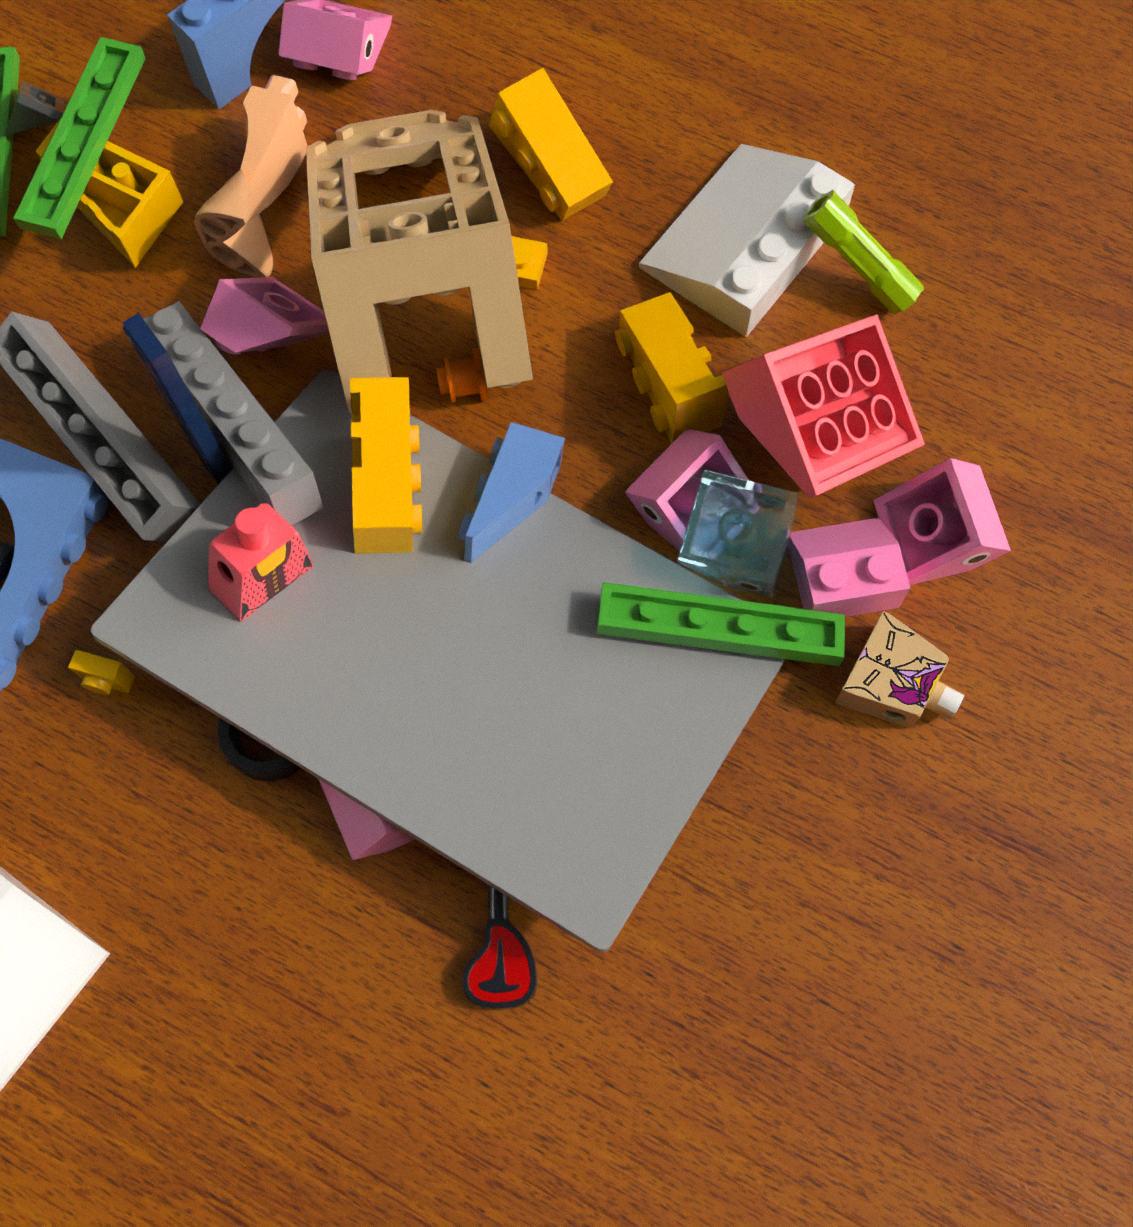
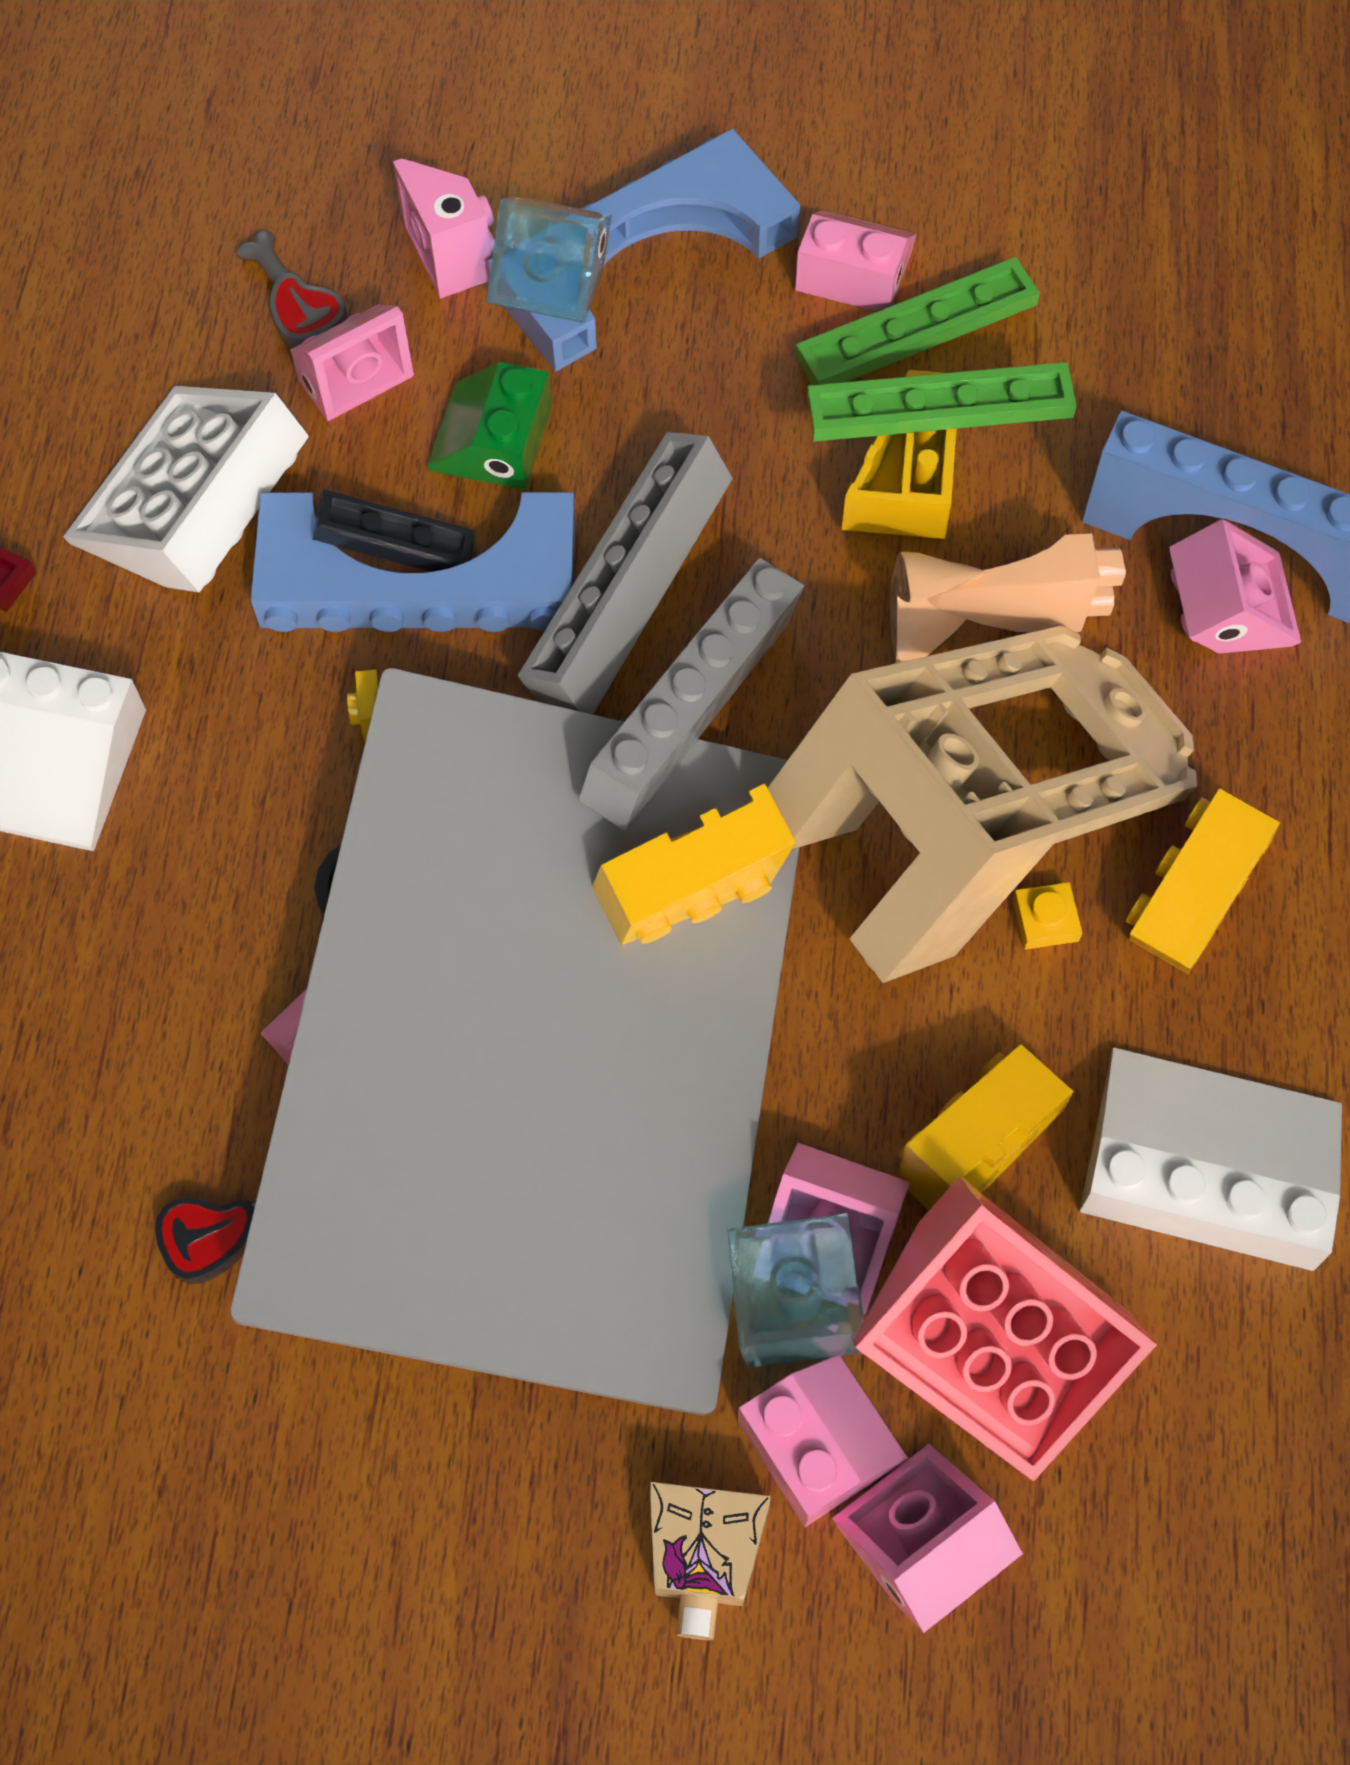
camera: 65 degrees right, 5 degrees down
(34, 109) = (972, 345): dark grey slope -> none
(176, 396) = (641, 615): dark blue tile -> none
(255, 560) = (525, 788): coral torso -> none
(260, 316) = (813, 657): bright pink slope -> none
(463, 377) = (854, 903): orange brick -> none
(517, 486) = (753, 1020): medium blue slope -> none
(721, 624) = (676, 1315): bright green plate -> none
(839, 228) = (1249, 1256): lime axle -> none

